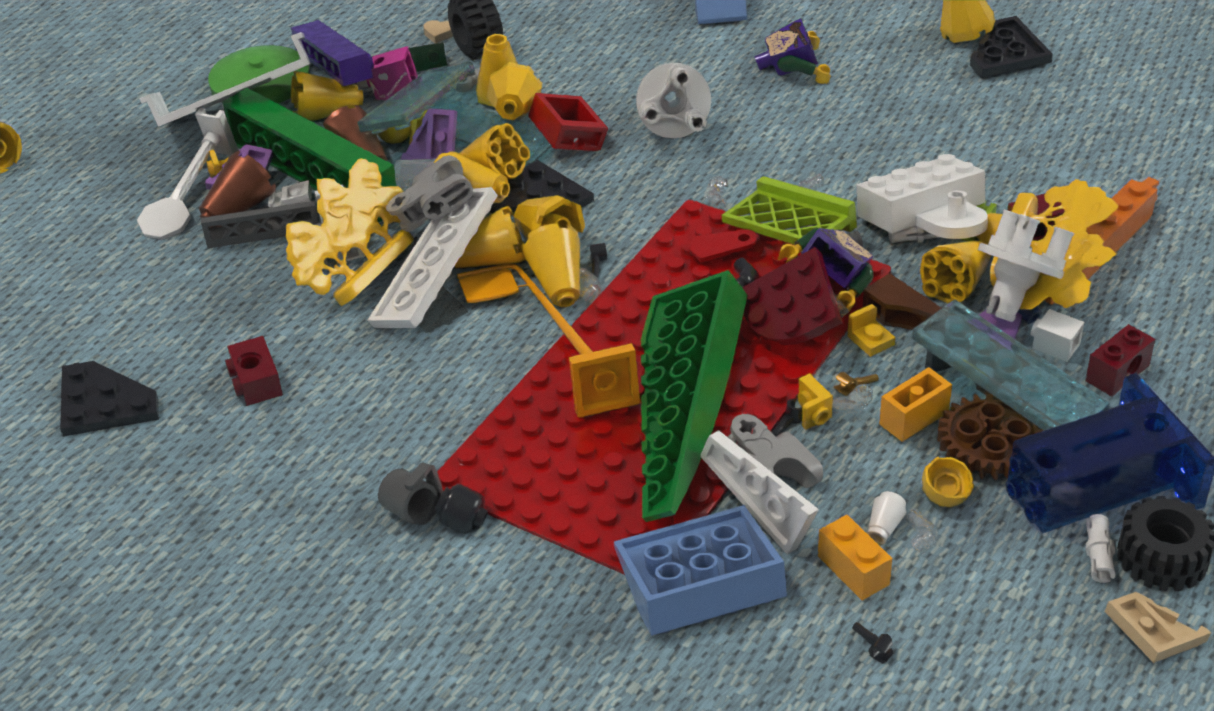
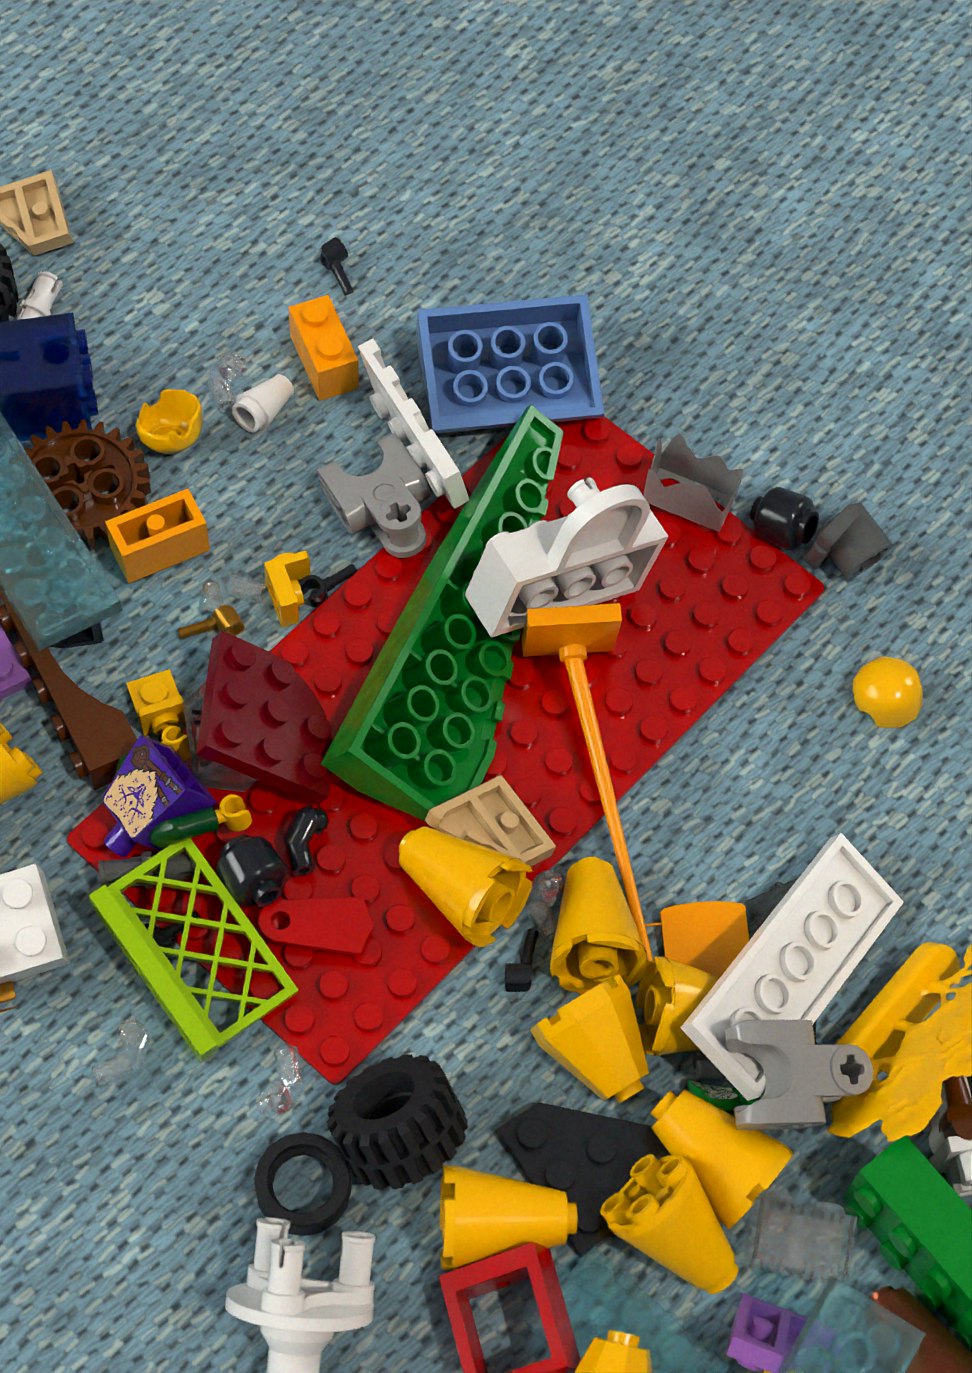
camera: 175 degrees left, 20 degrees up
(379, 425) = (888, 691): none -> yellow hair
(522, 495) = (688, 498): none -> light grey piece
(583, 149) = (496, 1214): none -> yellow cone
(609, 387) = (570, 561): none -> white brick
(629, 293) = (495, 819): none -> tan wing
(640, 259) = (466, 881): none -> yellow cone
(660, 153) = (397, 1121): none -> black tyre
(690, 170) = (298, 1145): none -> black tyre
(765, 244) = (251, 871): none -> black head

